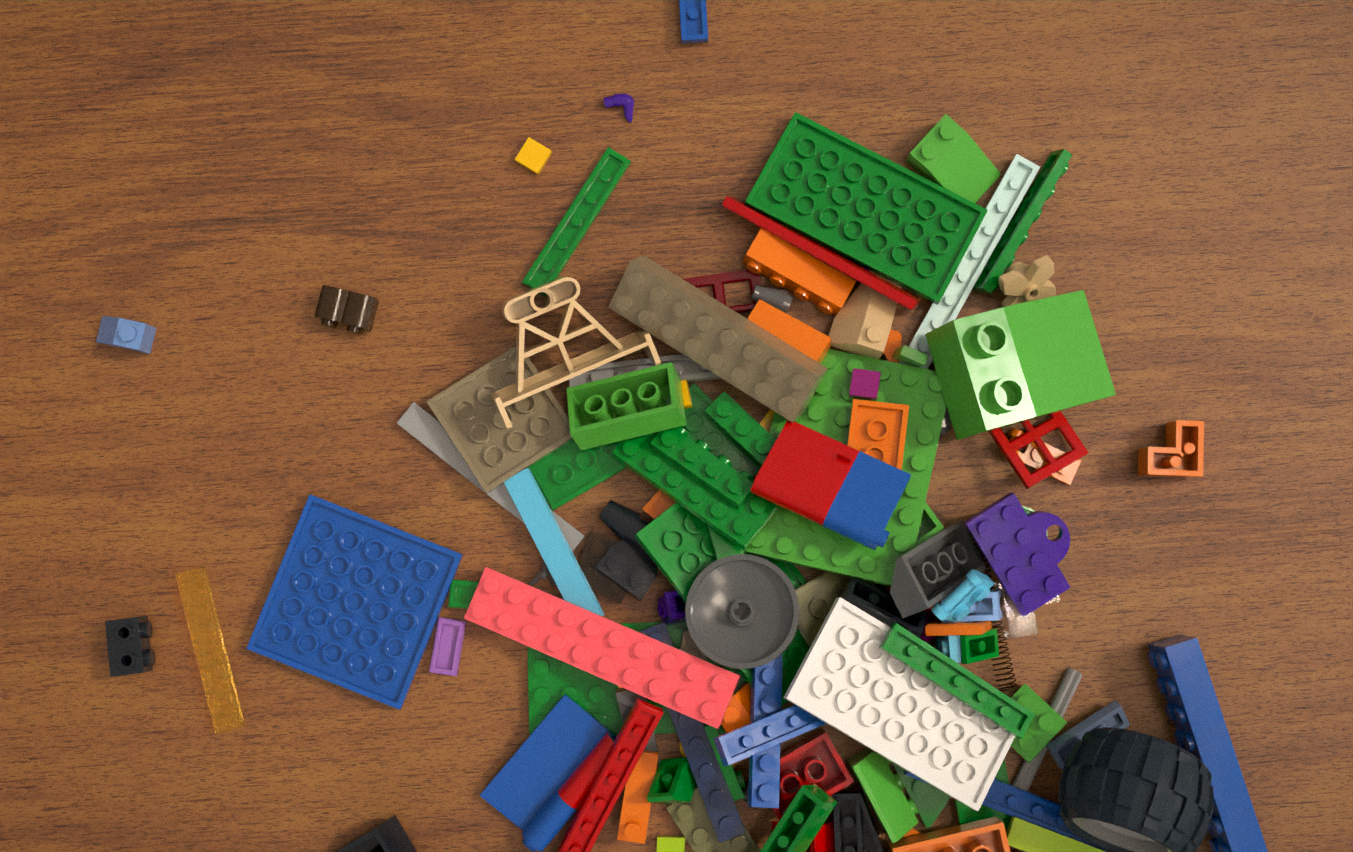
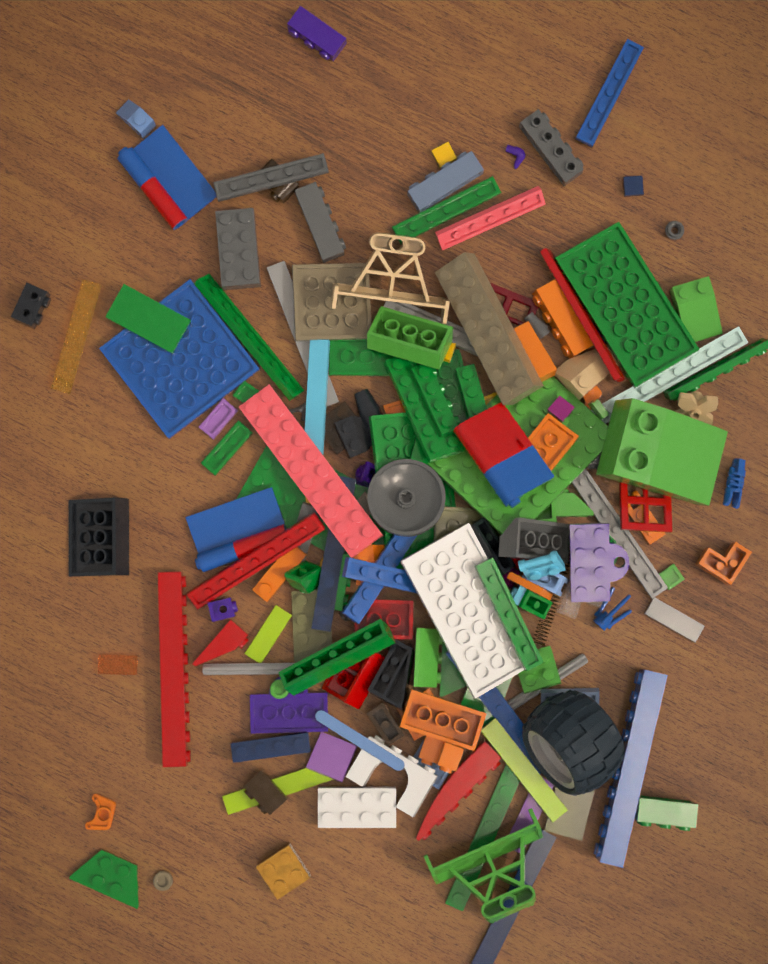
camera: 30 degrees right, 0 degrees up
(207, 384) = (167, 177): none -> blue door
(285, 575) = (148, 318): none -> green tile
(288, 99) = (316, 34): none -> dark purple brick
(335, 309) = (271, 177): none -> dark grey tile
(347, 421) = (238, 249): none -> dark grey brick
(425, 522) = (249, 337): none -> green plate
(429, 328) = (319, 222): none -> dark grey brick
(480, 676) = (227, 448): none -> green tile
(554, 188) = (445, 182): none -> sand blue brick
(636, 200) = (490, 218): none -> coral plate
(659, 70) = (551, 147): none -> dark grey brick
(786, 59) = (633, 186): none -> dark blue tile
(869, 75) = (674, 224): none -> dark grey plate
(947, 495) = (570, 505): none -> bright green slope
(1001, 482) = (605, 513): none -> light grey plate
(1071, 610) = (606, 620): none -> blue plant
(1118, 508) = (671, 576): none -> bright green tile
(1127, 348) = (735, 483): none -> blue hinge
(1154, 559) = (674, 619): none -> light grey tile
(1296, 805) = (666, 812): none -> brick

